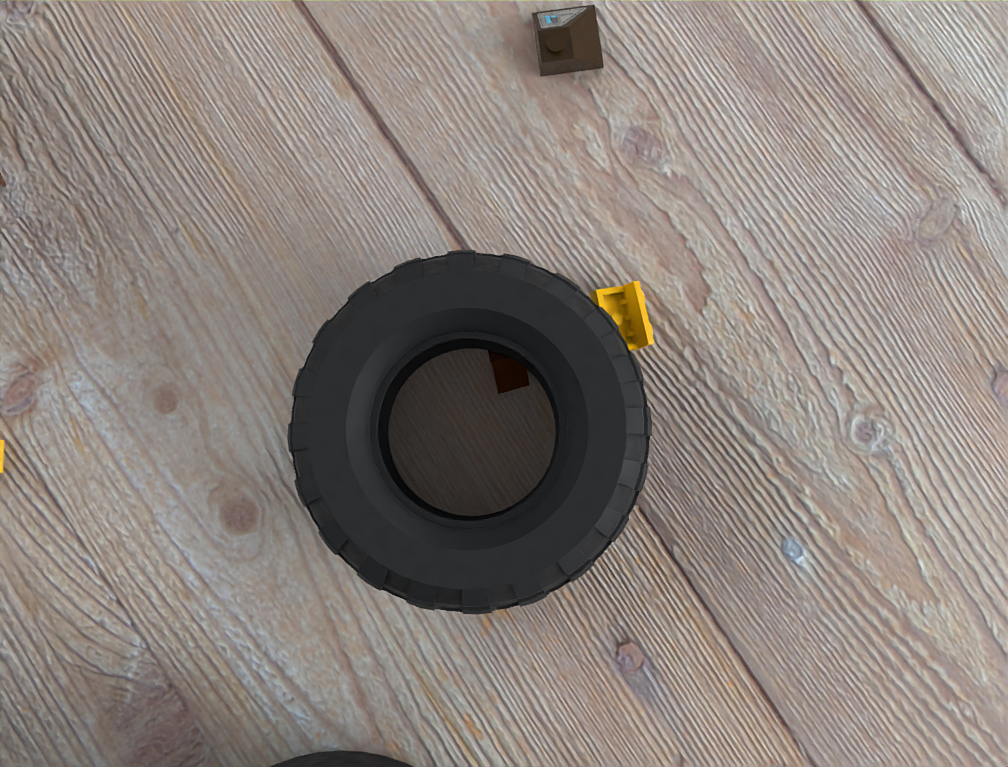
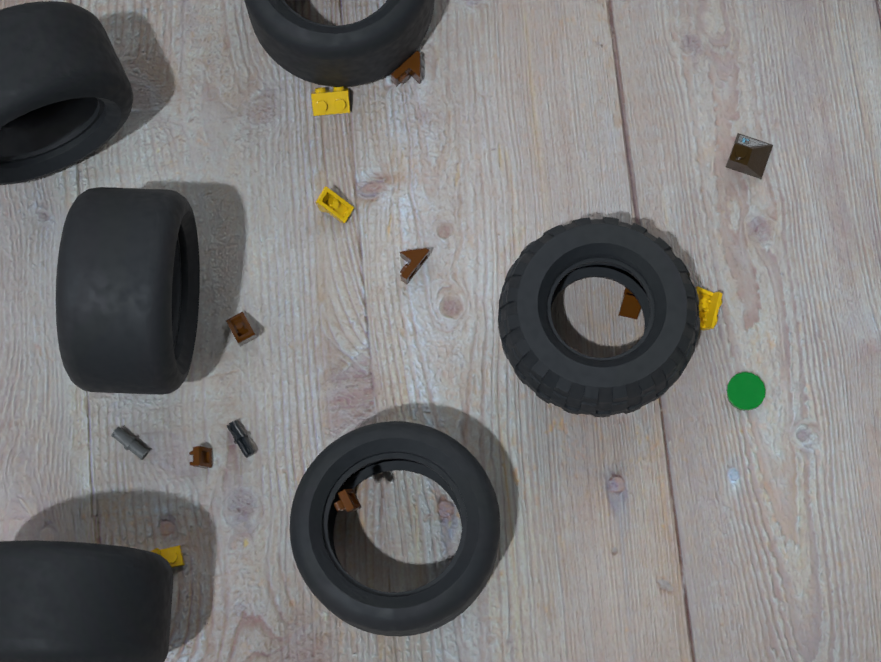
camera: 30 degrees right, 10 degrees down
(145, 475) = (416, 259): none -> reddish brown slope
(748, 412) = (745, 391): none -> green tile

